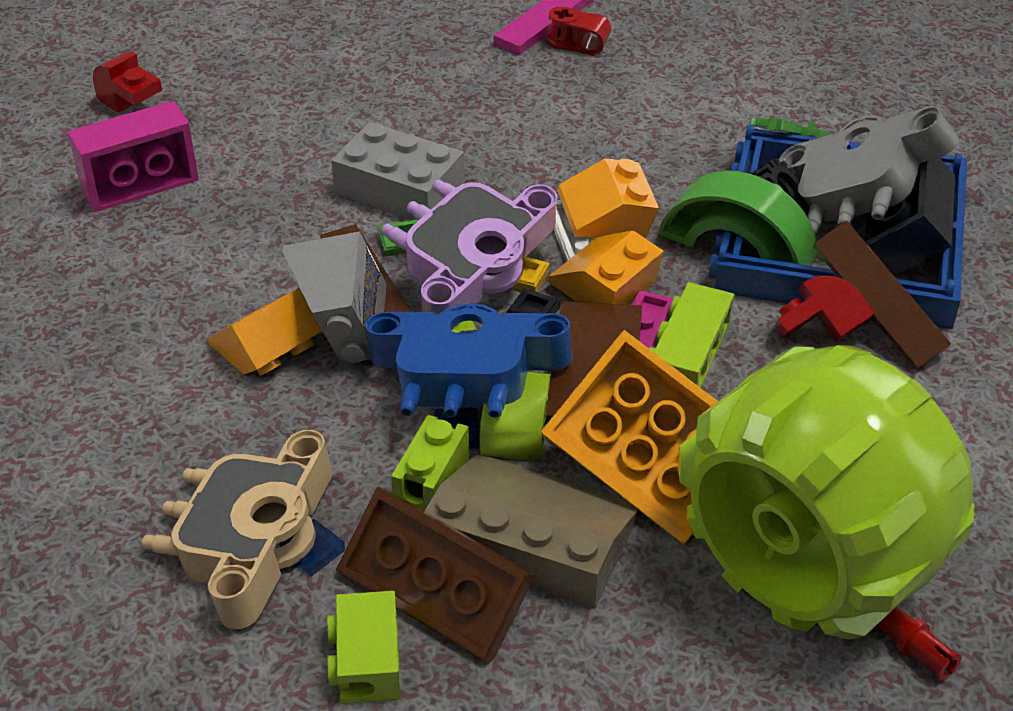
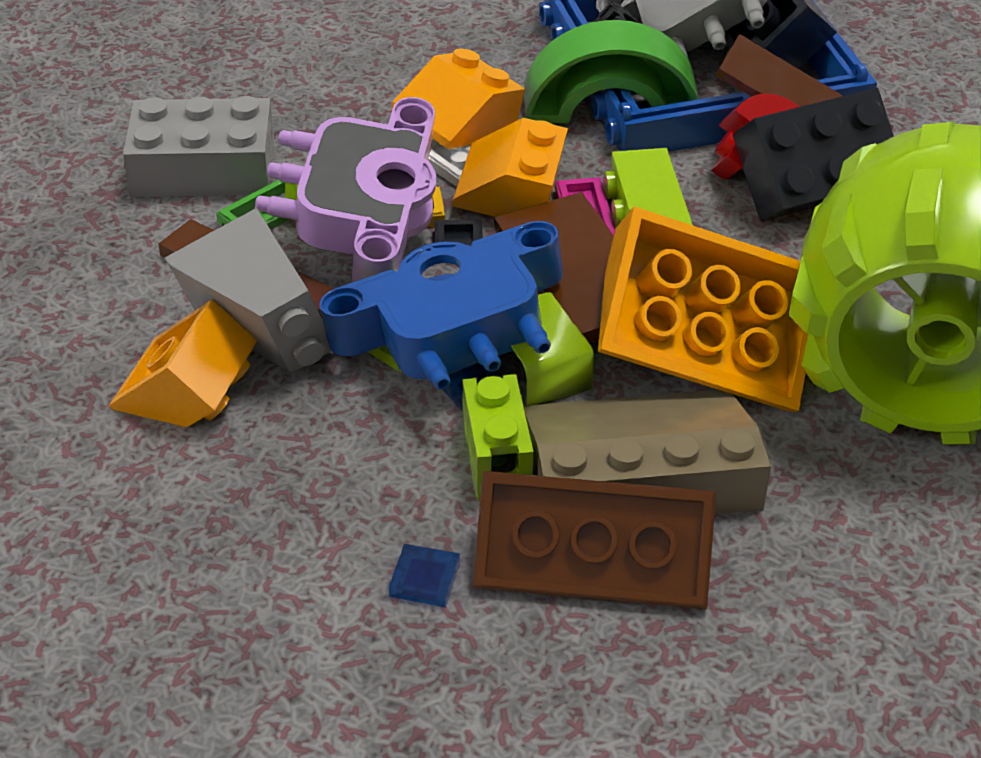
camera: 30 degrees left, 0 degrees up
(240, 516) = (338, 580): tan piece -> none
(366, 647) = (581, 648): lime brick -> none
(881, 327) = (800, 152): none -> black brick

